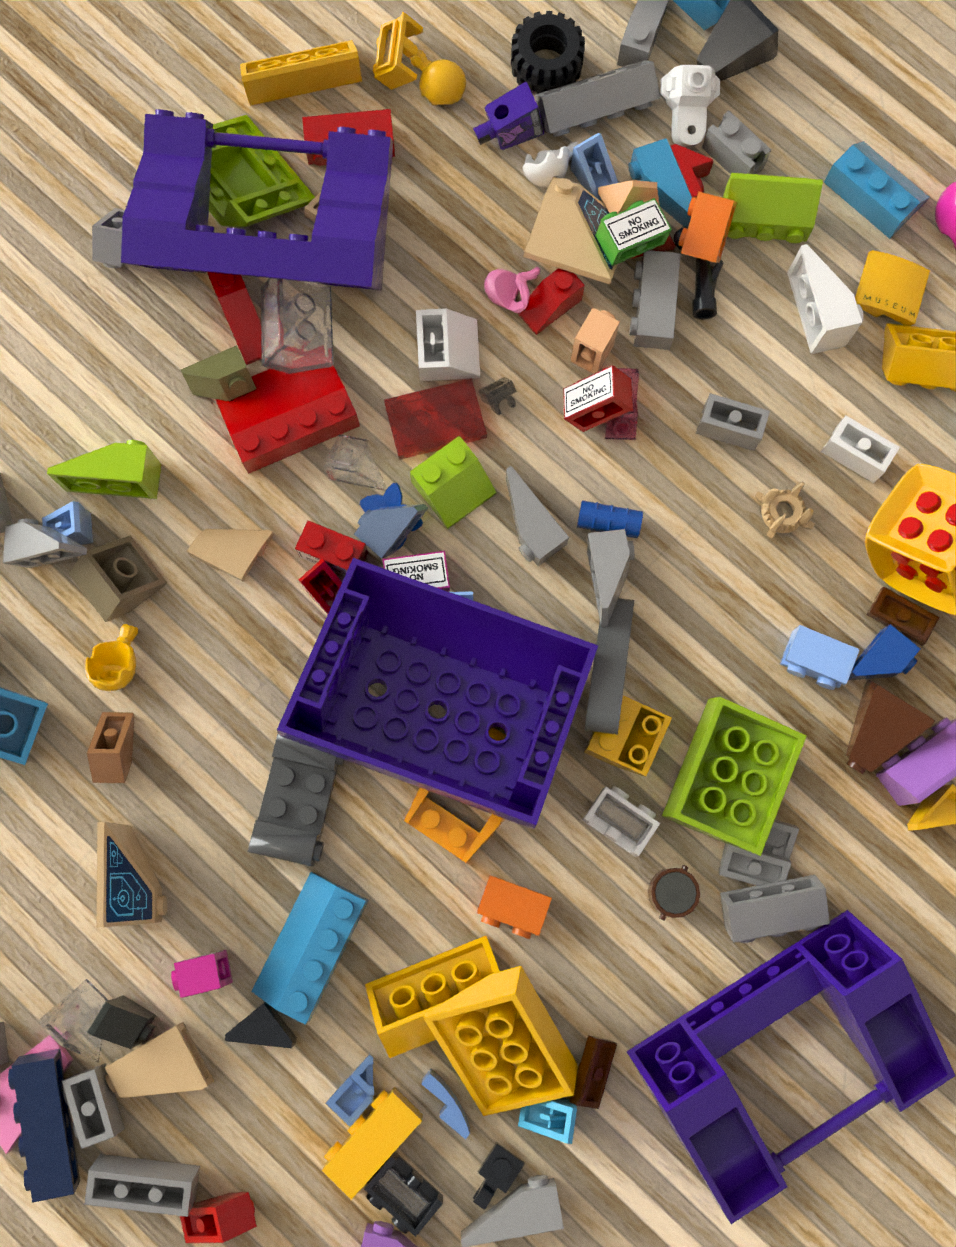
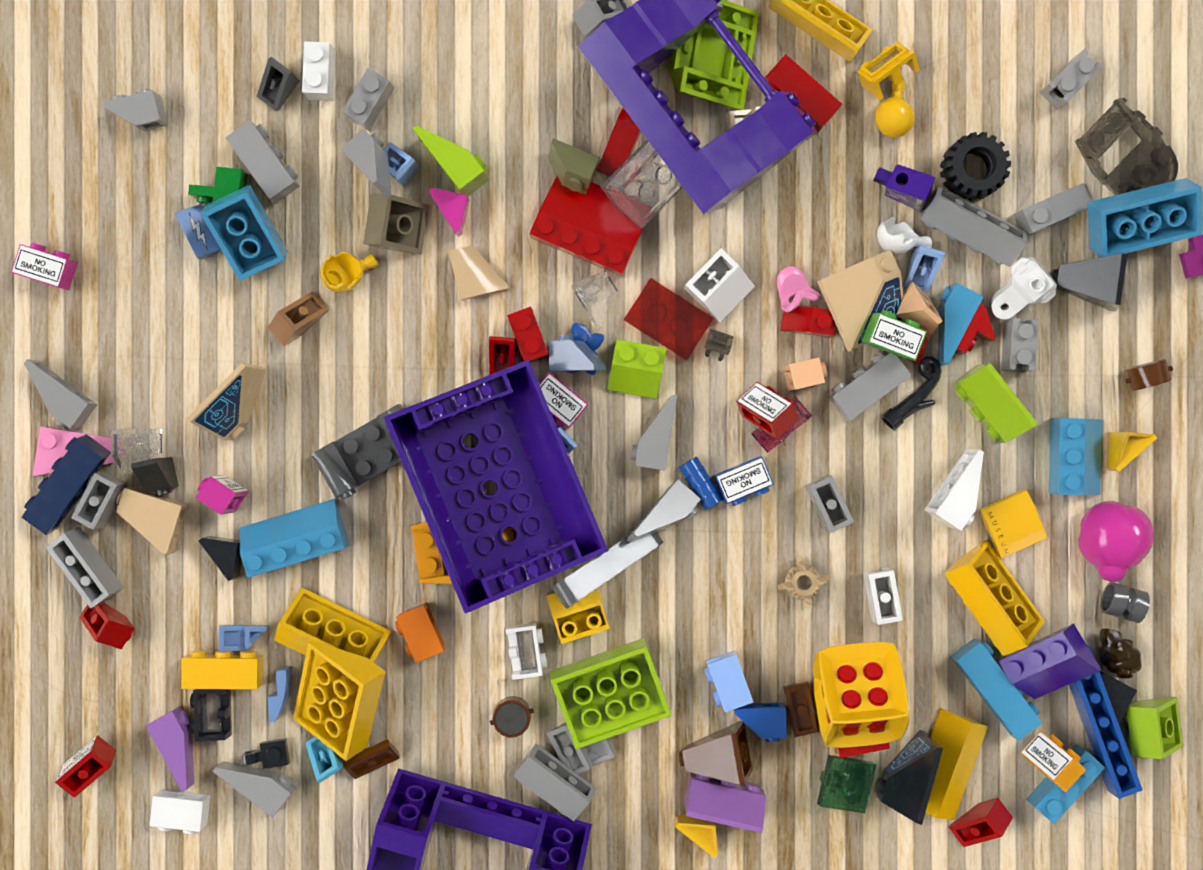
camera: 50 degrees right, 10 degrees up
(152, 514) = (453, 206): none -> dark pink slope
(642, 479) = (744, 480): none -> brick
(707, 227) = (942, 378): orange brick -> none
(859, 68) = (1149, 374): none -> reddish brown piece
(906, 139) = (1125, 447): none -> yellow slope

